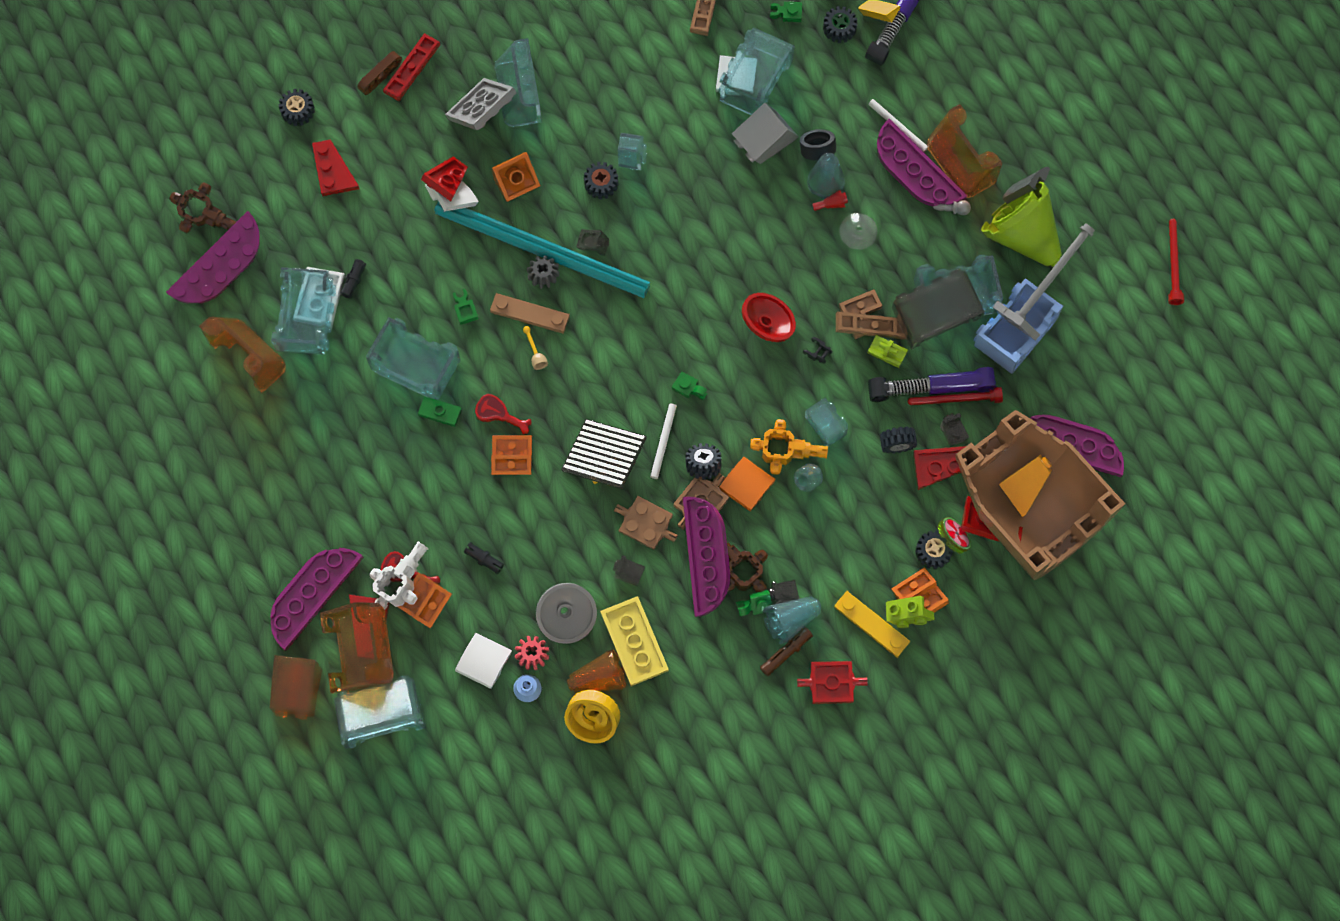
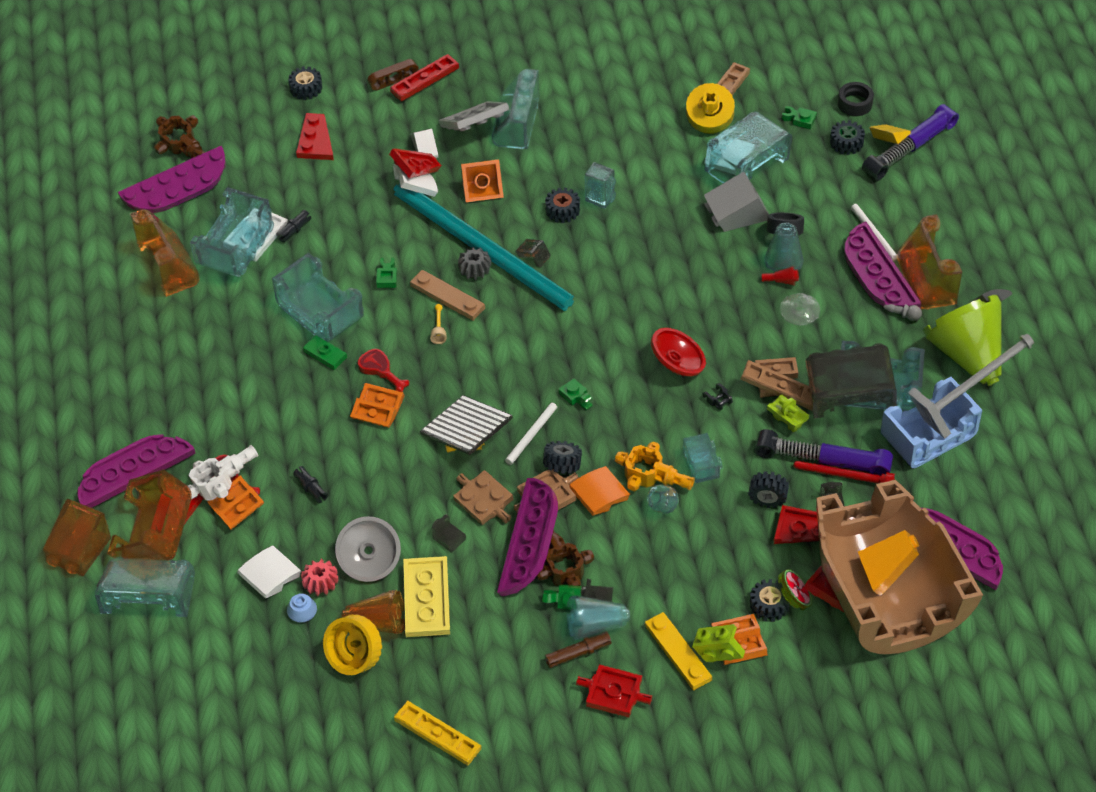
camera: 20 degrees right, 20 degrees down
(441, 144) = (425, 142): none -> white slope
(695, 772) = (437, 733): none -> yellow plate
(715, 31) = (707, 100): none -> yellow piece

